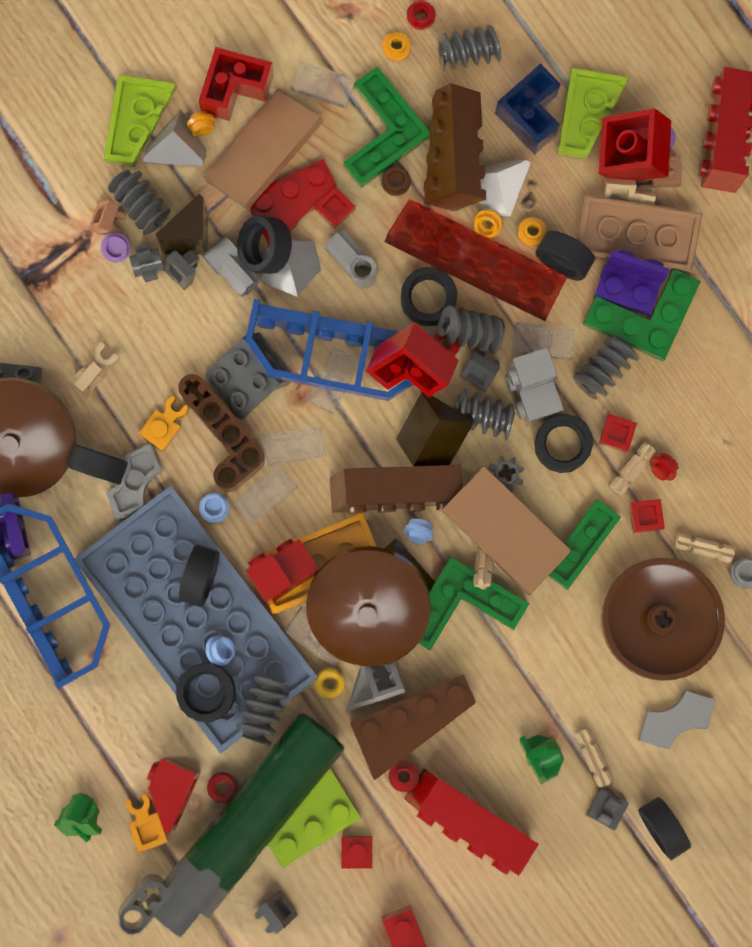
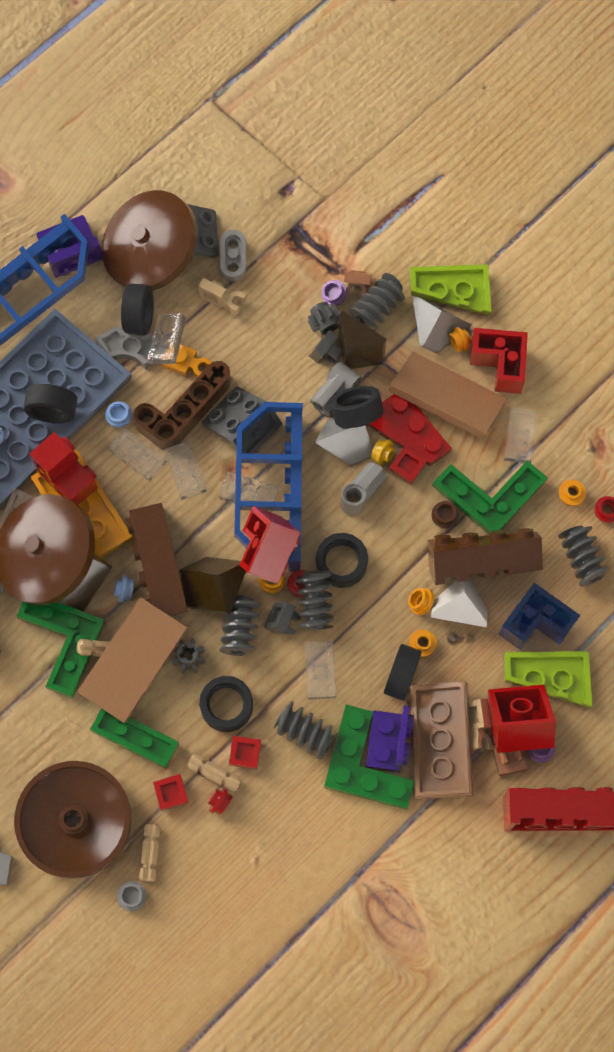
camera: 85 degrees right, 10 degrees down
(47, 350) = (233, 257): none -> light grey plate
(138, 438) = (166, 338): none -> clear plate
(315, 230) = (383, 452): none -> yellow plate
(476, 259) = (382, 595): clear red plate -> none
(534, 386) = (274, 667): light grey brick -> none

